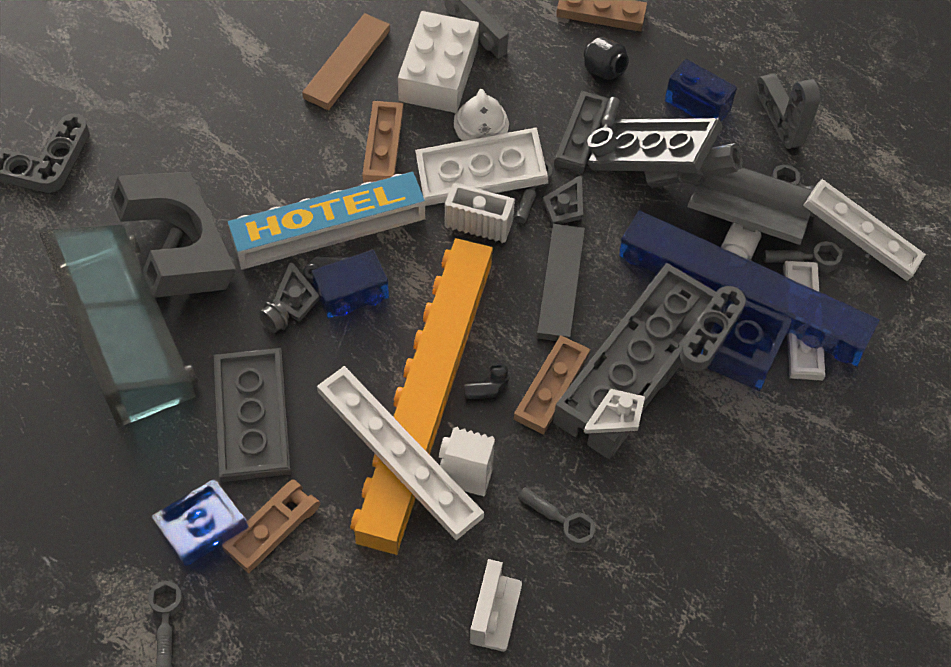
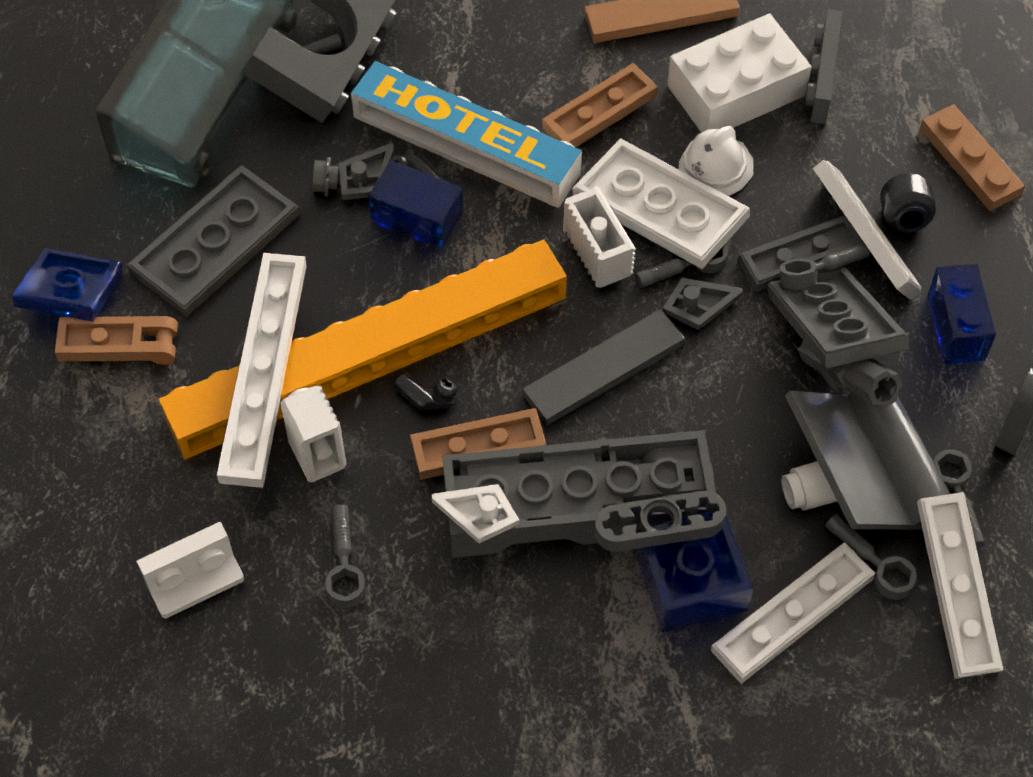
camera: 50 degrees right, 0 degrees up
(602, 88) = (868, 229): none -> white tile
(814, 316) = (767, 535): clear blue brick -> none

